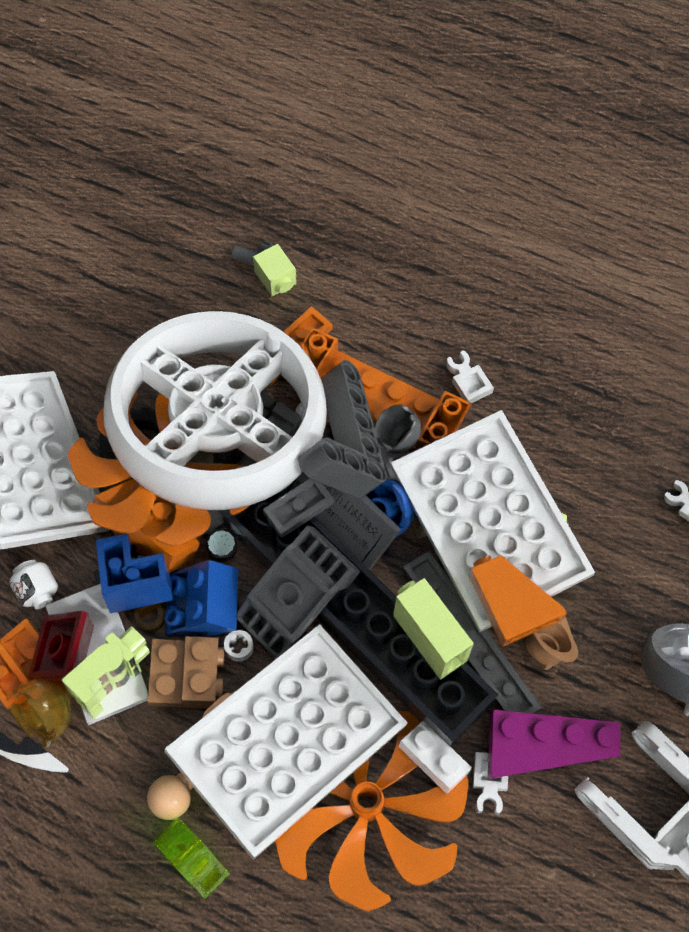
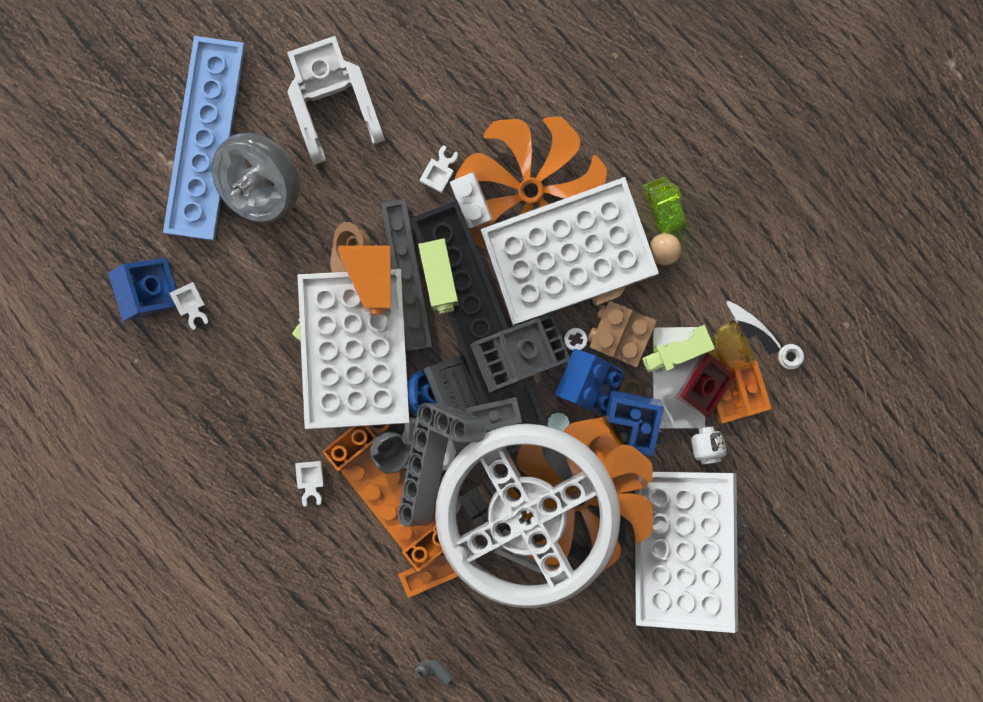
camera: 160 degrees left, 20 degrees up
(275, 270) = (423, 644): yellowish green brick -> none
(541, 742) = (392, 178): magenta wing -> none

